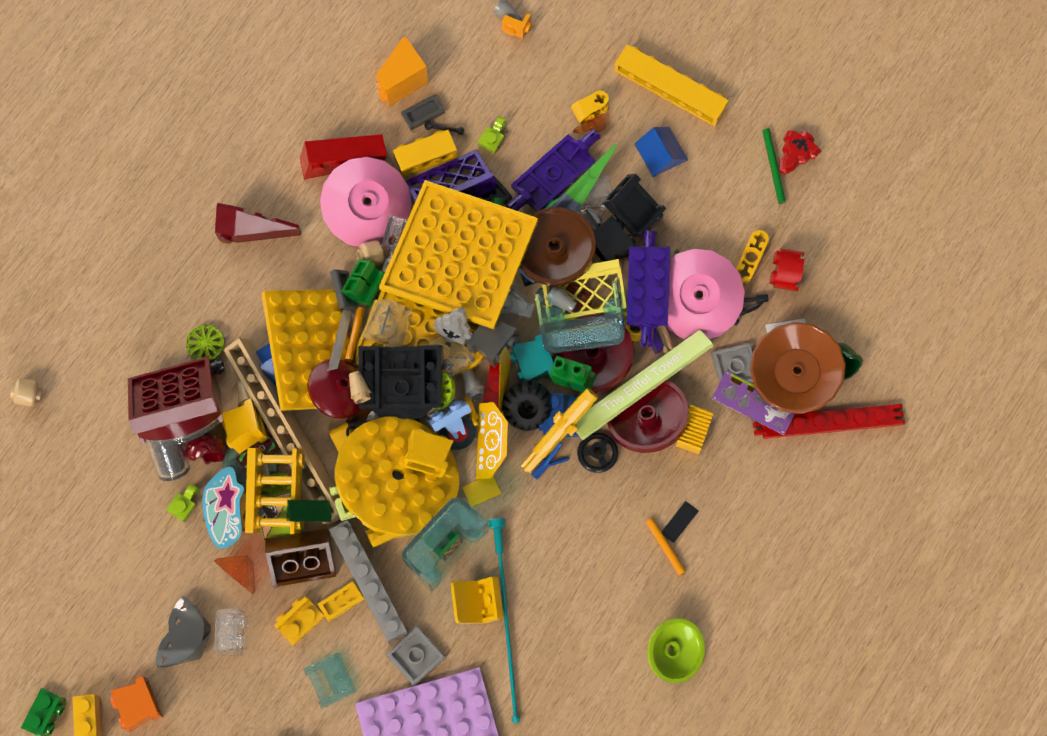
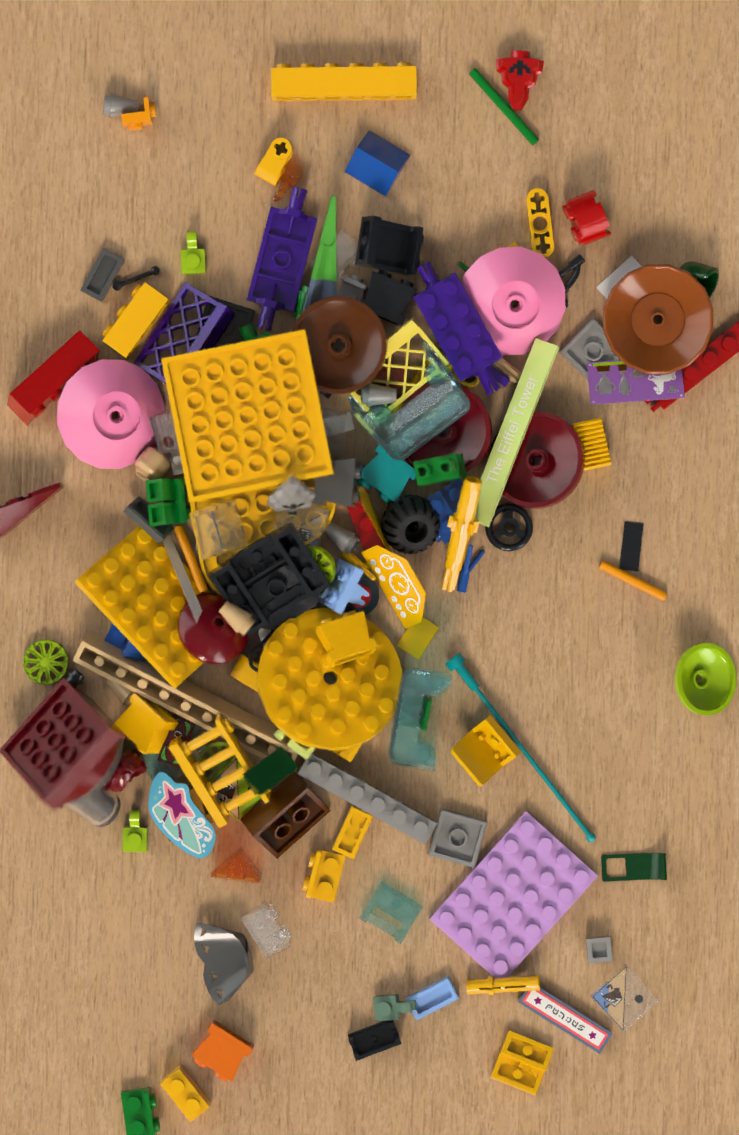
camera: 35 degrees left, 15 degrees up
(401, 74) = (55, 250): light orange slope -> none

